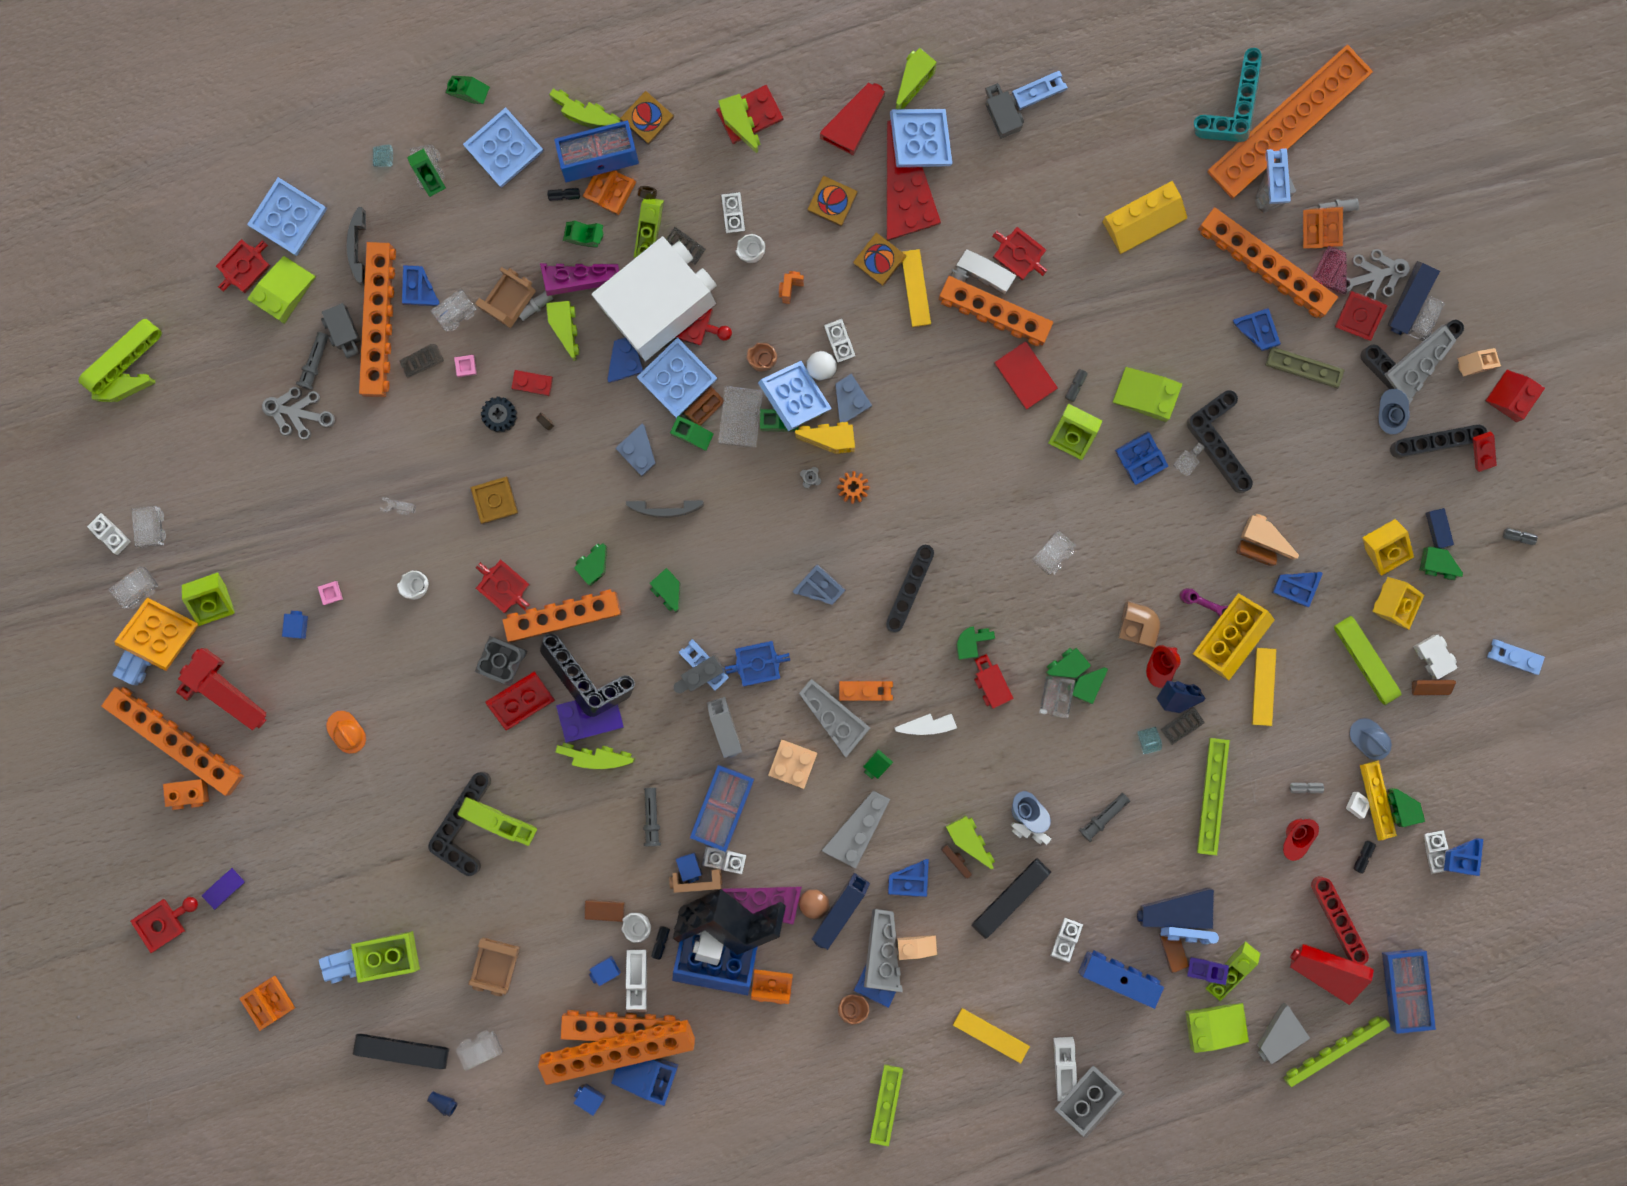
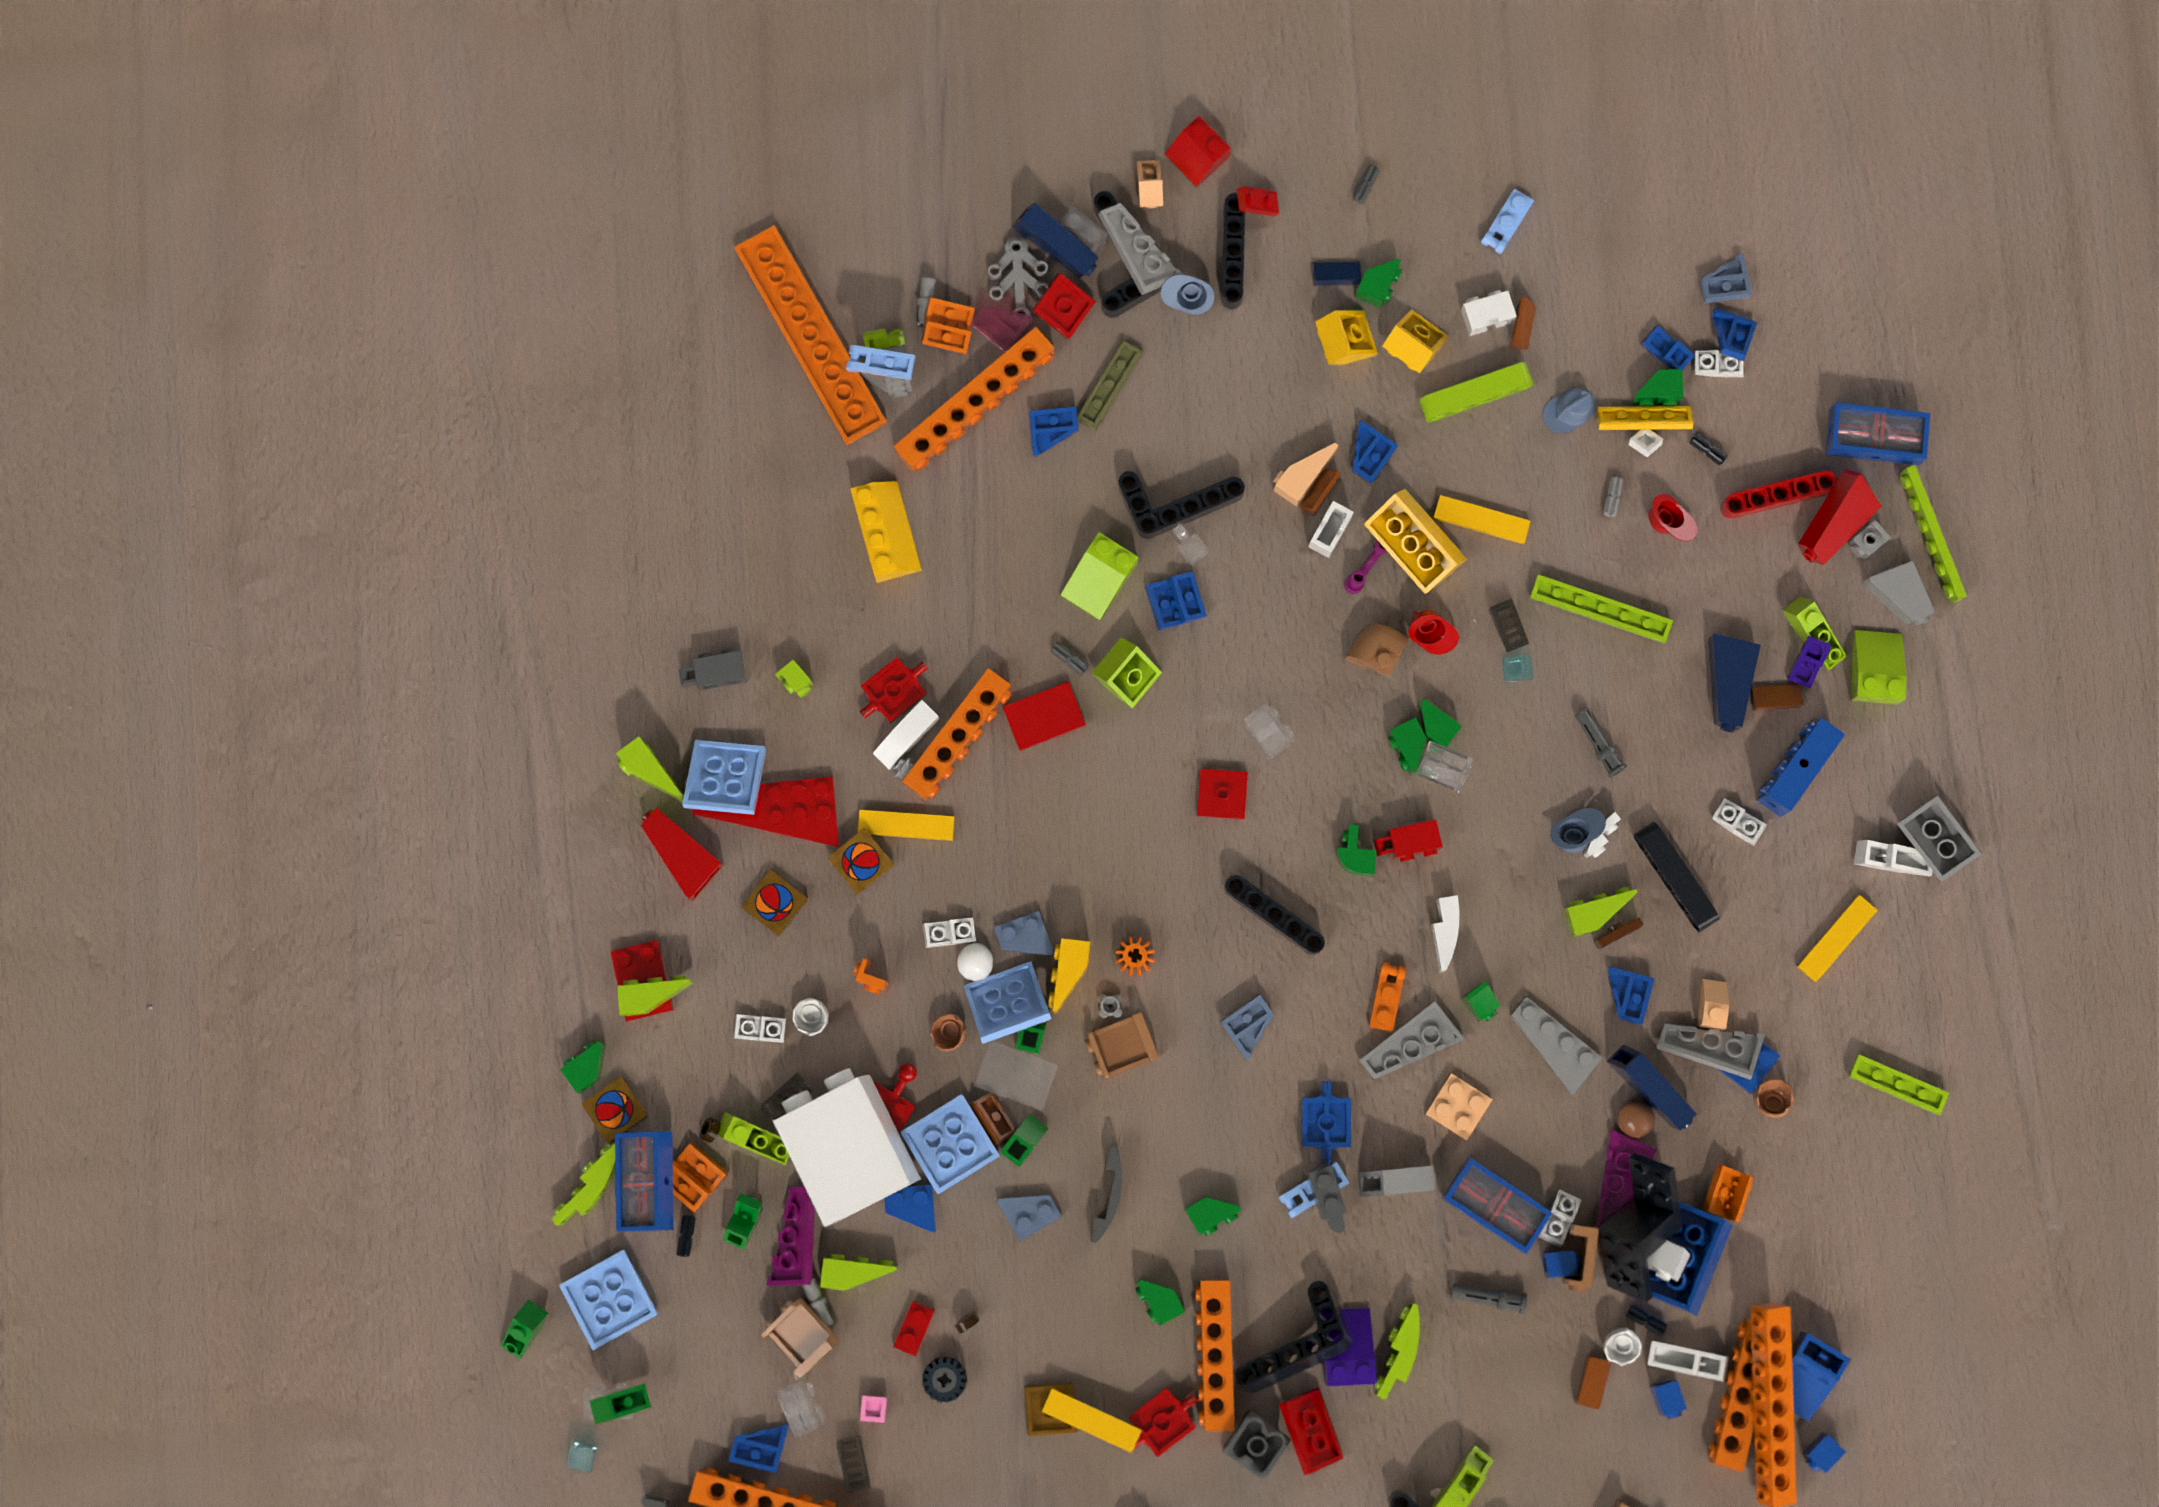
camera: 80 degrees left, 5 degrees down
(491, 532) = (1091, 1420): none -> yellow tile
(673, 88) = (585, 1068): none -> green slope
(781, 492) = (1121, 1046): none -> medium nougat panel
(996, 528) = (1222, 794): none -> red plate
(1010, 175) = (795, 679): none -> lime brick
(1039, 90) = (699, 622): light blue plate -> none
(1179, 696) = (1474, 621): dark blue slope -> none
(1190, 935) = (1763, 673): light blue plate -> none
(1227, 567) = (1331, 529): none -> white brick
(1242, 103) = (776, 385): teal beam -> none
(1299, 176) = (880, 340): none -> lime plate
(1324, 1006) = (1875, 533): none -> light grey brick
(1439, 807) = (1667, 350): none -> blue slope
(1507, 845) = (1727, 282): none -> sand blue wing

